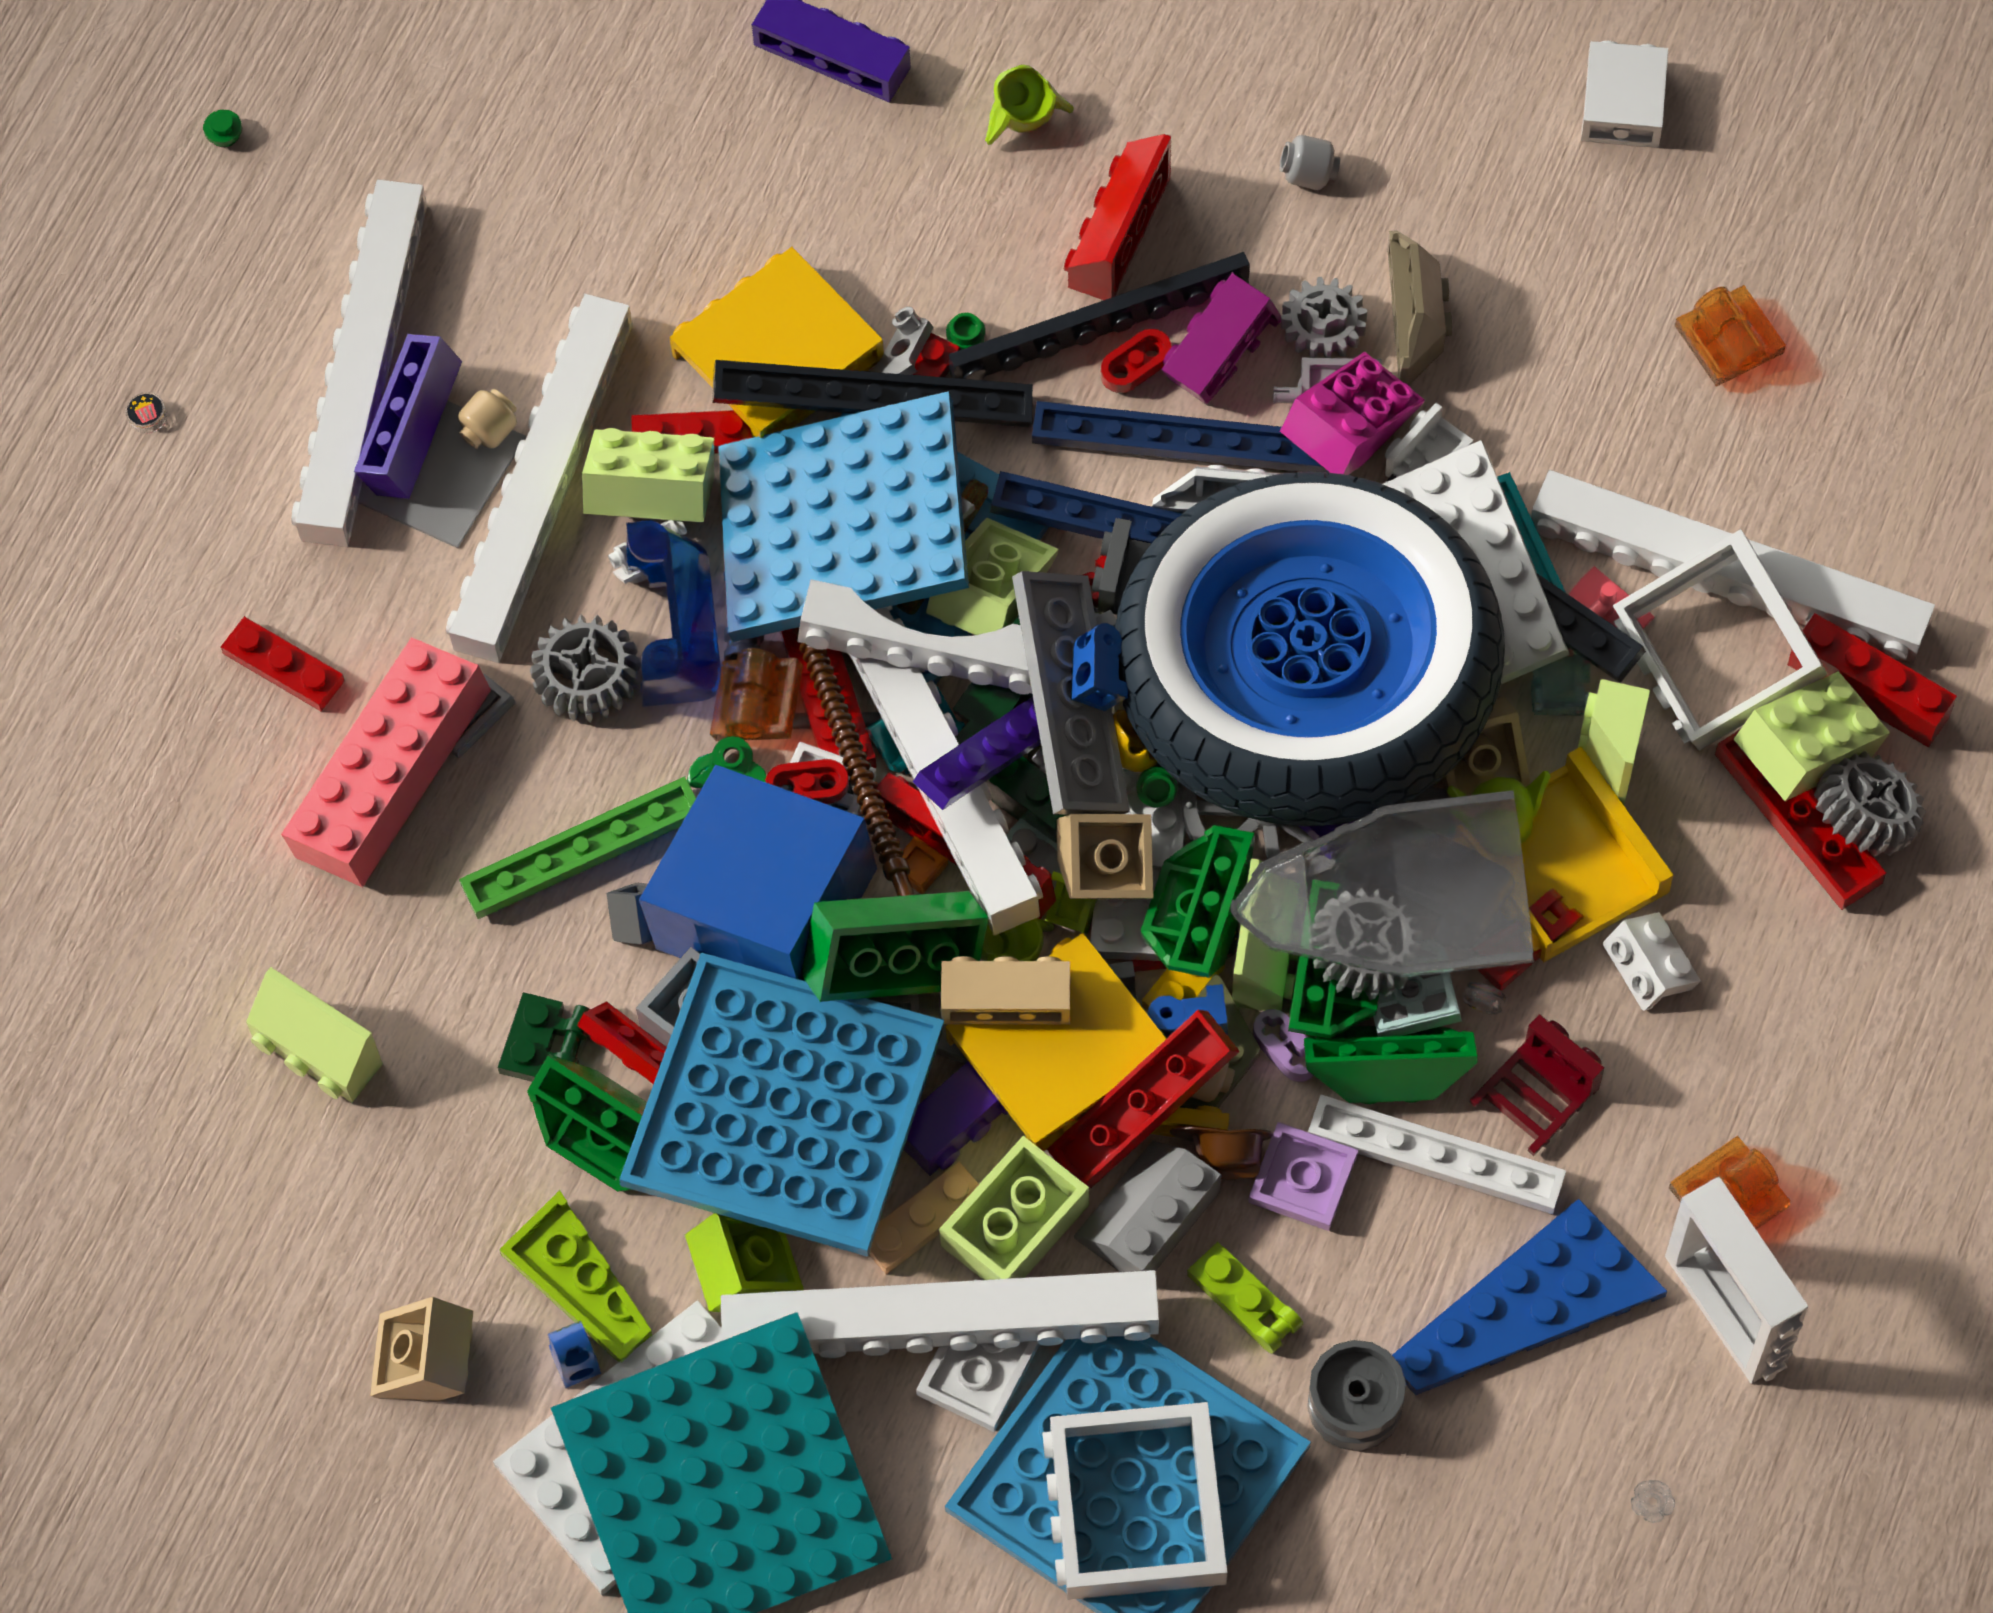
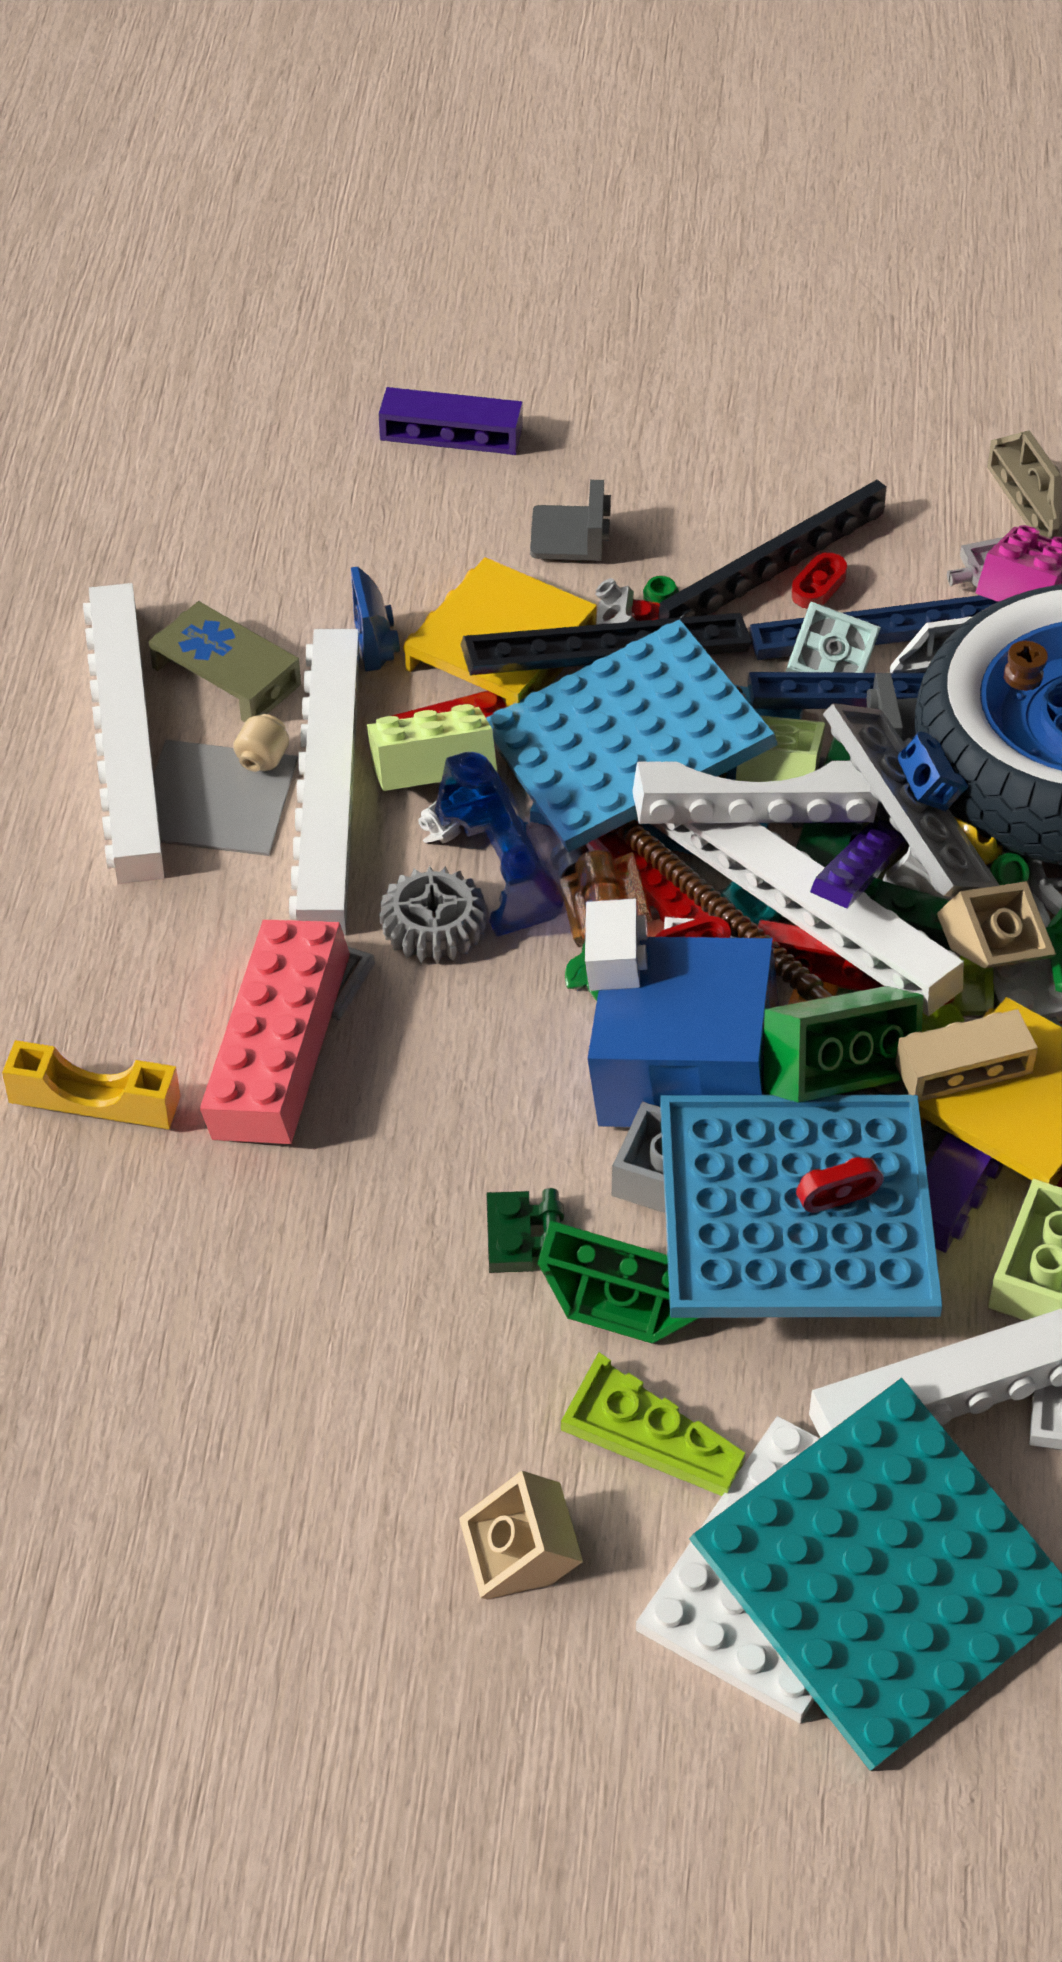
camera: 20 degrees left, 15 degrees down
(164, 761) = (46, 1080): none -> yellow arch
(282, 664) = (138, 982): red plate -> none
(312, 1037) = (297, 1275): yellowish green slope -> none
(408, 416) = (187, 755): dark purple brick -> none
(489, 304) = (229, 658): none -> olive panel
(572, 1353) = (679, 1487): blue leg -> none
(578, 848) = (489, 1060): bright green plate -> none
(624, 1039) = (617, 1211): red plate -> none
(627, 916) = (567, 1098): dark grey panel -> none
(648, 298) = (373, 622): none -> blue slope
(708, 783) = (614, 945): none -> white brick
(740, 1259) = (795, 1359): lime slope -> none
(802, 1102) = (839, 1184): none -> red plate
(903, 223) = (572, 530): none -> dark grey bracket
(920, 1218) = (961, 1287): light nougat plate -> none
(1022, 102) = (635, 422): lime piece -> none
(1106, 455) = (832, 642): none -> light aqua piece
(1120, 217) = (755, 479): red slope -> none
(1220, 338) = (887, 543): magenta wedge -> none
(1237, 587) = (1025, 665): none -> reddish brown wheel
(1309, 162) = (895, 415): light grey head -> none
(1326, 322) = (963, 516): light grey gear -> none

